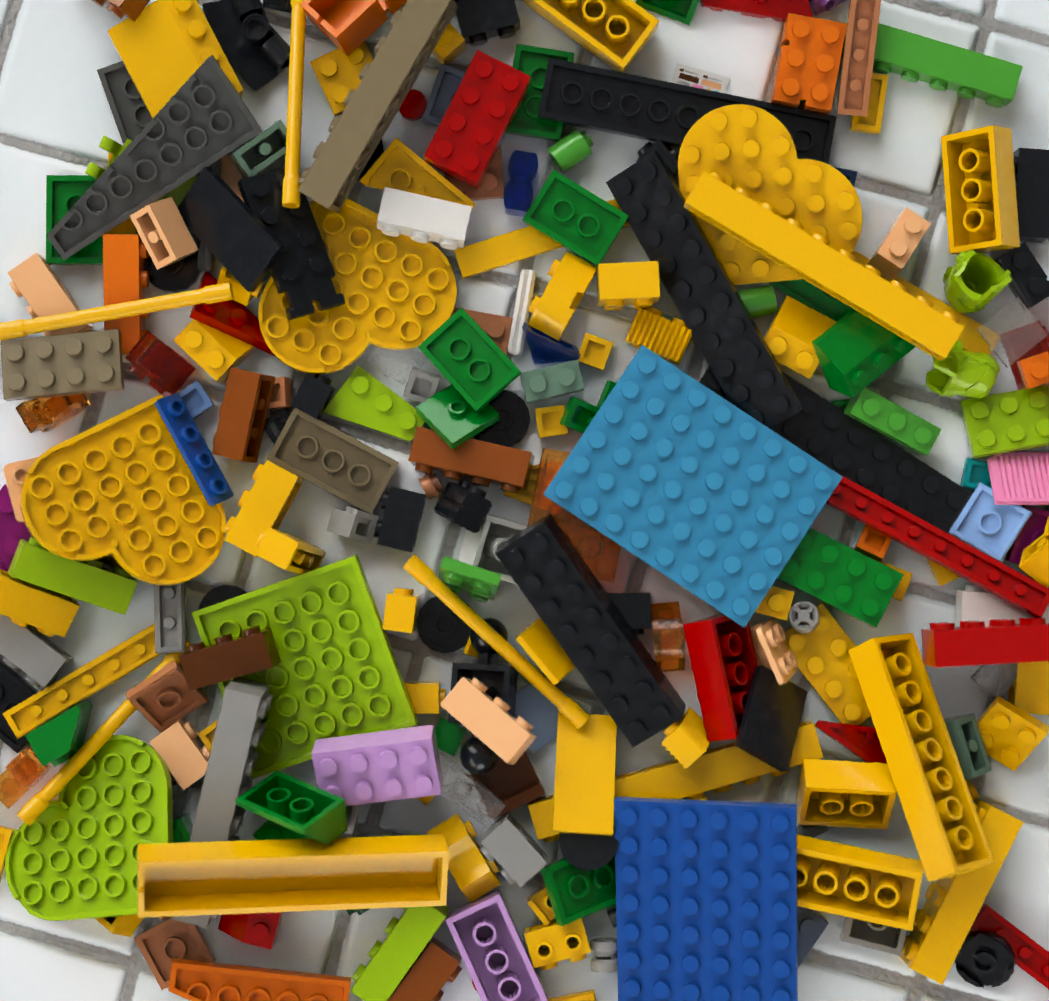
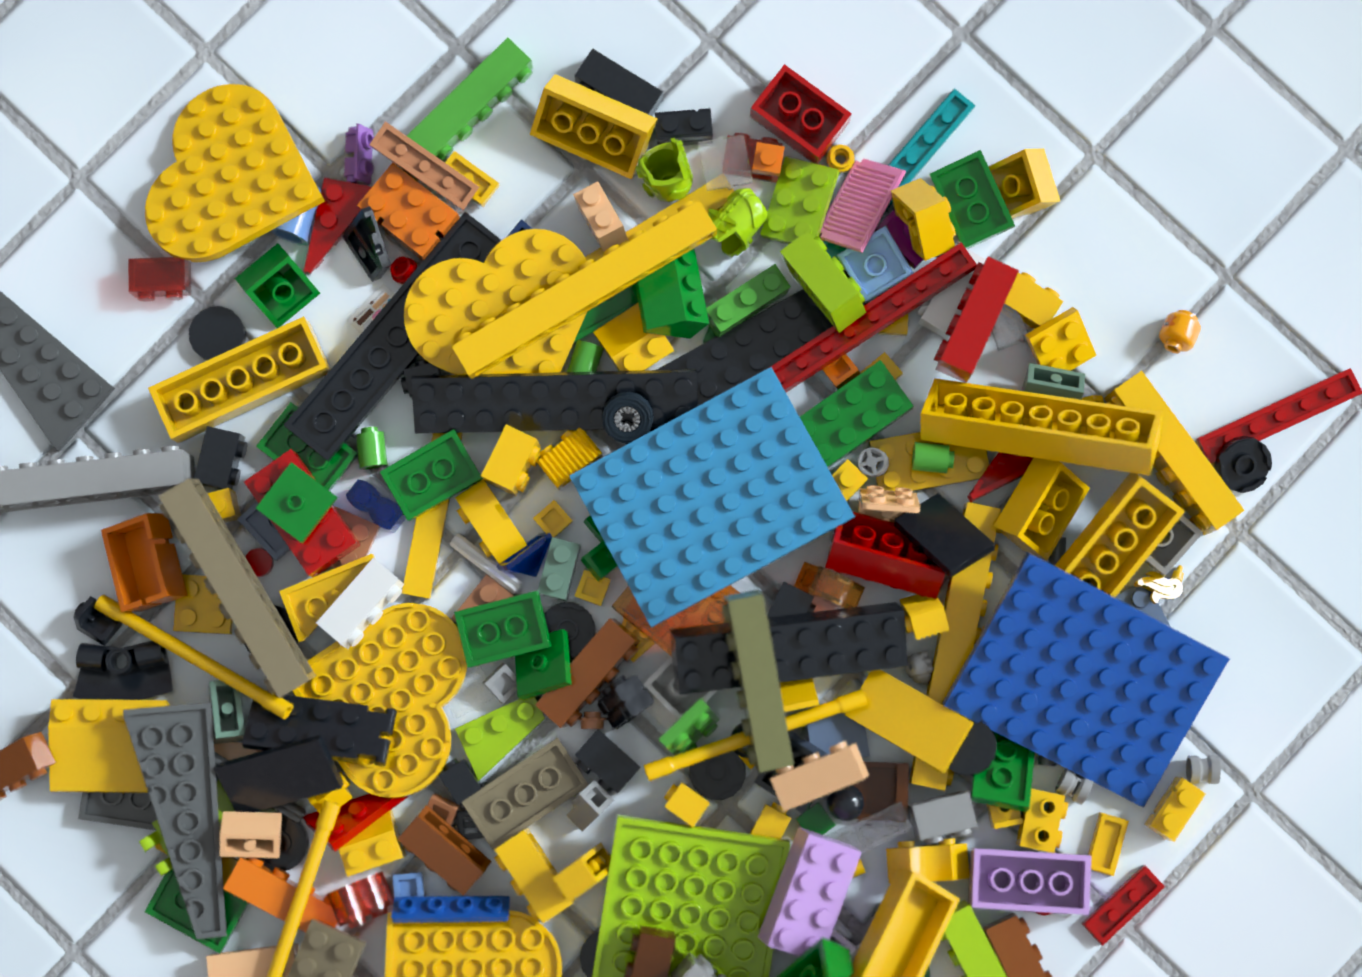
camera: 55 degrees left, 5 degrees down
(483, 108) = (296, 502): none -> green plate
(546, 618) = (758, 680): none -> olive brick
(637, 758) = (919, 667): none -> light grey animal
(710, 374) = (627, 431): none -> black bush
(751, 87) = (402, 269): none -> red plate
(757, 43) = (367, 244): none -> black wing
(830, 941) = (1162, 587): none -> piece
(837, 669) = (932, 457): none -> bright green brick
(950, 483) = (824, 280): none -> lime brick

